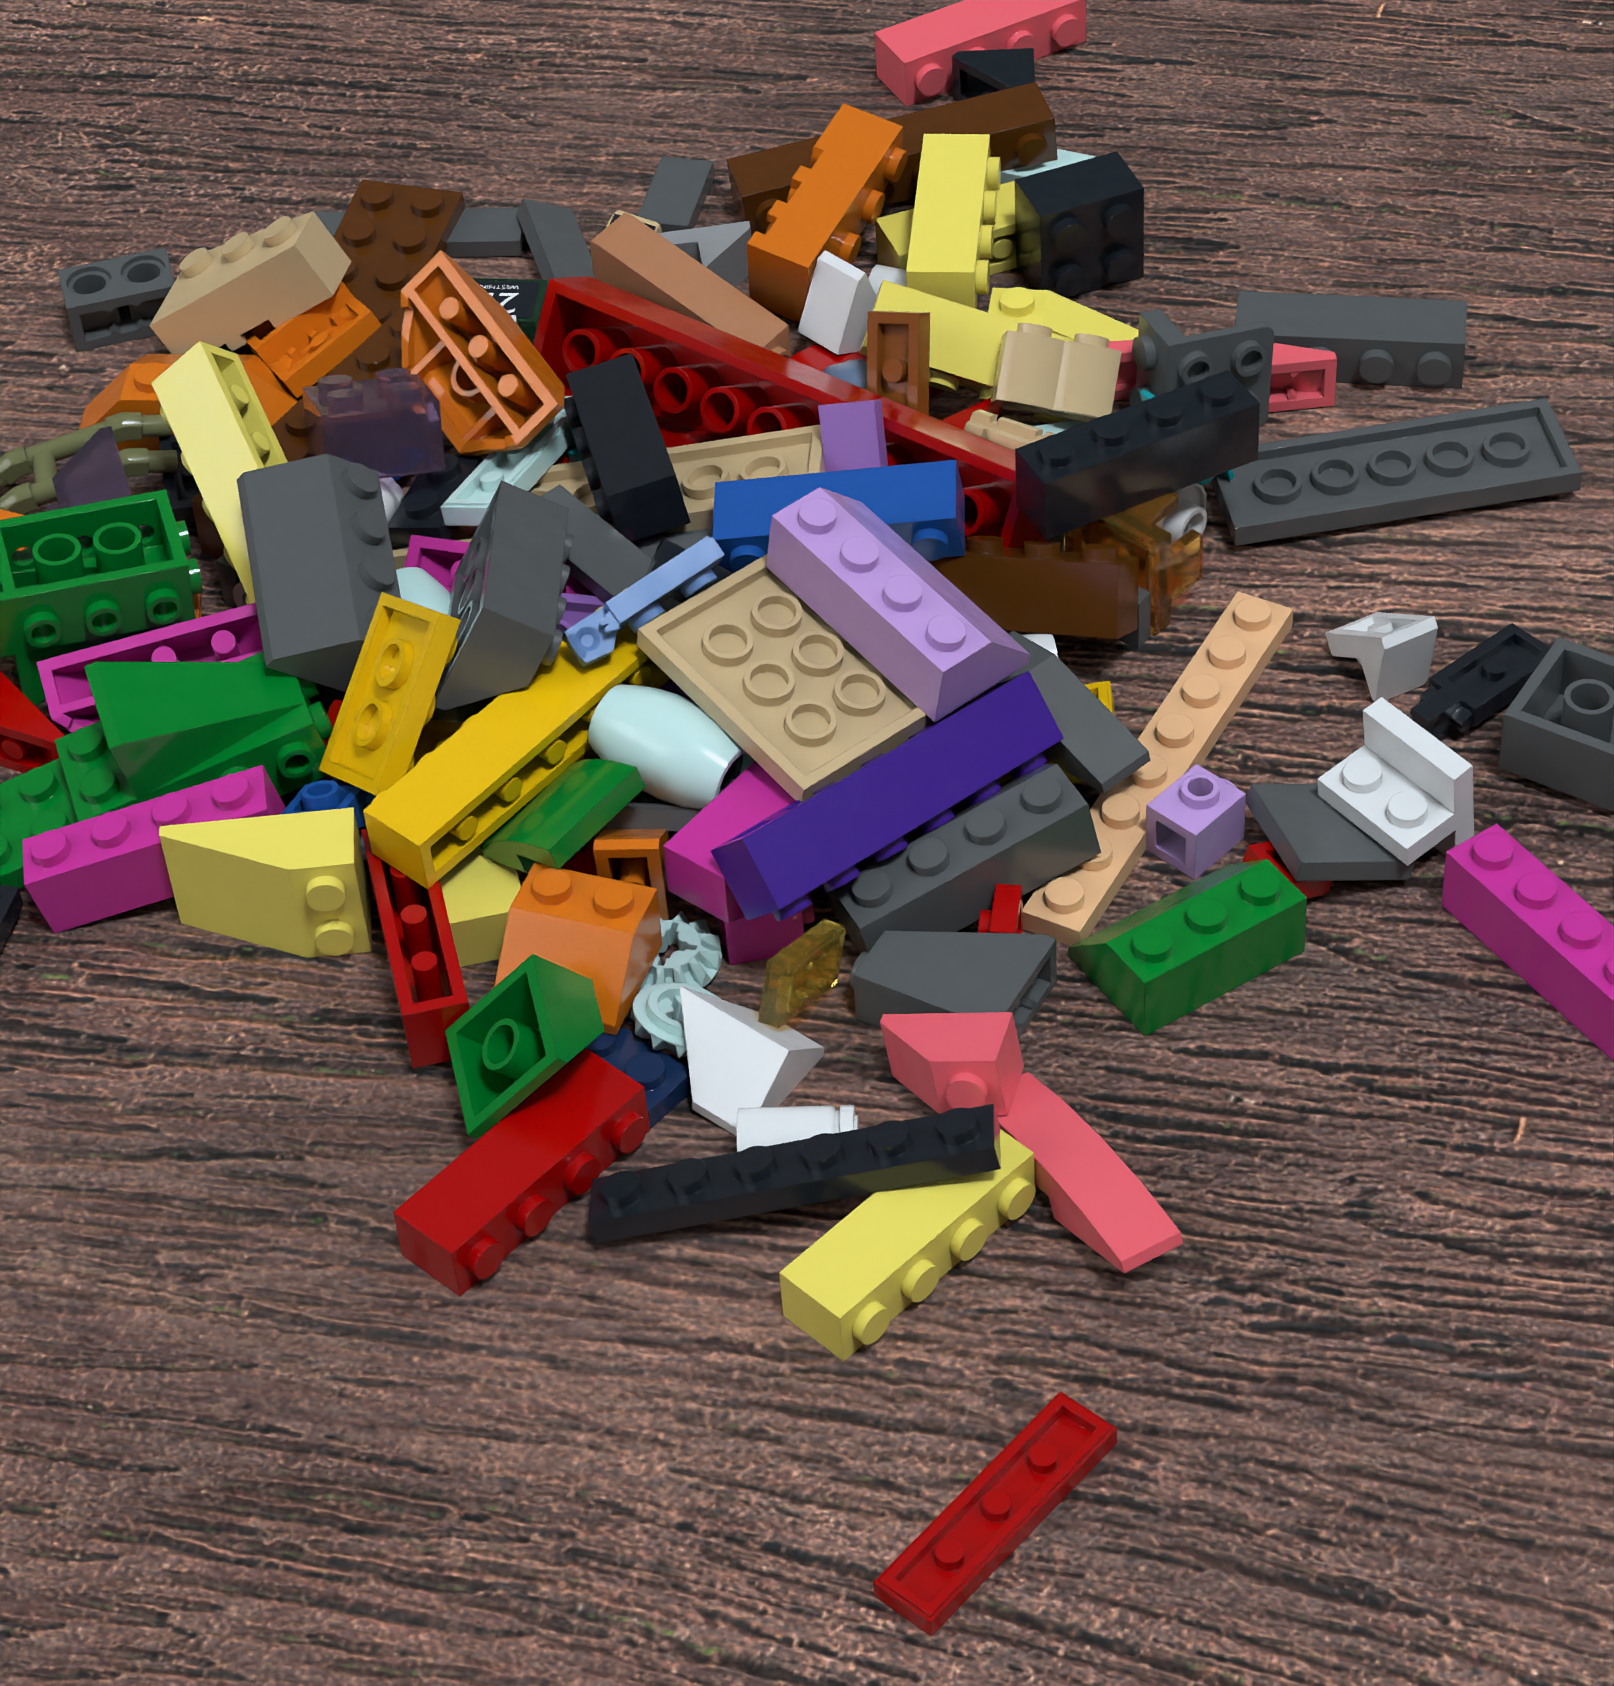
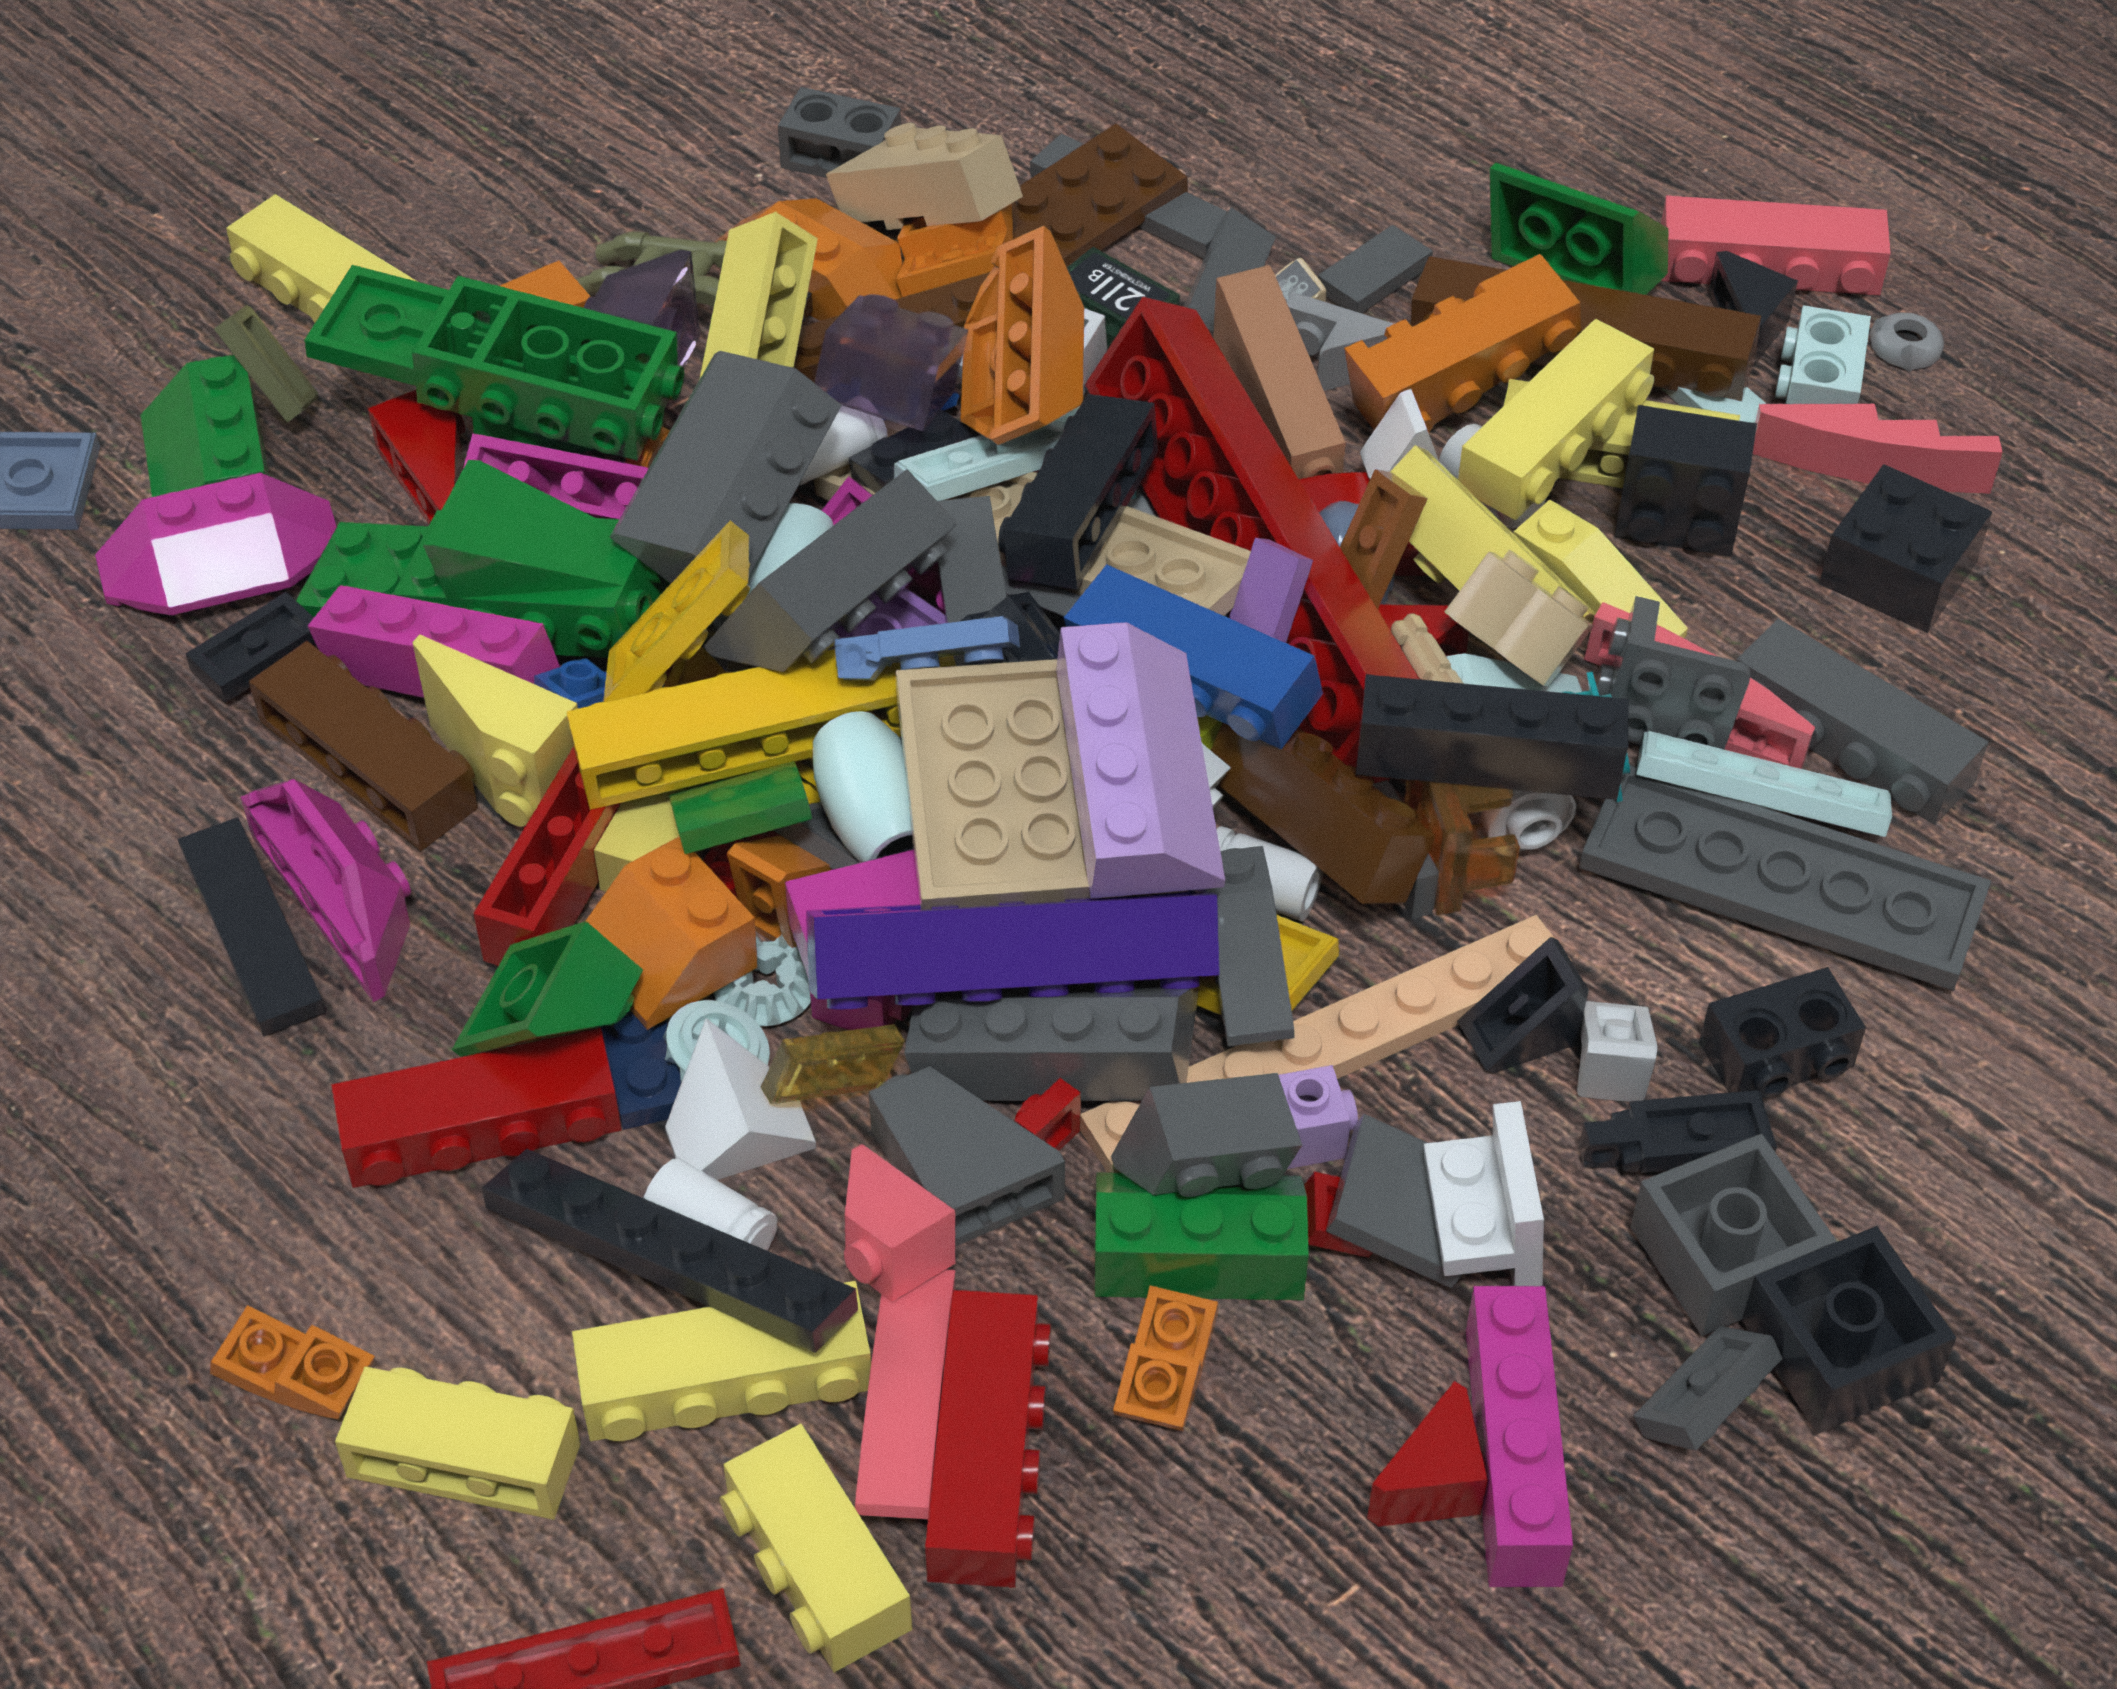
camera: 30 degrees right, 5 degrees up
(148, 960) = (365, 745): none -> reddish brown brick
(176, 1151) = (251, 926): none -> black tile
(219, 1068) = (334, 876): none -> dark pink wedge
(559, 1446) = (290, 1367): none -> orange slope
(750, 1413) = (459, 1441): none -> light yellow brick
(801, 90) = (1575, 233): none -> green slope
(1102, 105) = (1825, 358): none -> light aqua brick
(1109, 1317) = (815, 1549): none -> light yellow brick
(1138, 71) = (1902, 352): none -> light grey piece
(1160, 855) = (1209, 1136): none -> dark grey slope
(1215, 139) = (1854, 445): none -> coral slope
(1222, 1223) = (984, 1438): none -> red brick
(1244, 1042) = (1166, 1358): none -> orange slope
(1279, 202) = (1905, 548): none -> black brick
(1298, 654) = (1529, 1011): none -> black slope
(1347, 410) = (1765, 783): none -> light aqua tile
(1493, 577) = (1782, 1034): none -> black brick
(1522, 996) = (1436, 1470): none -> red slope

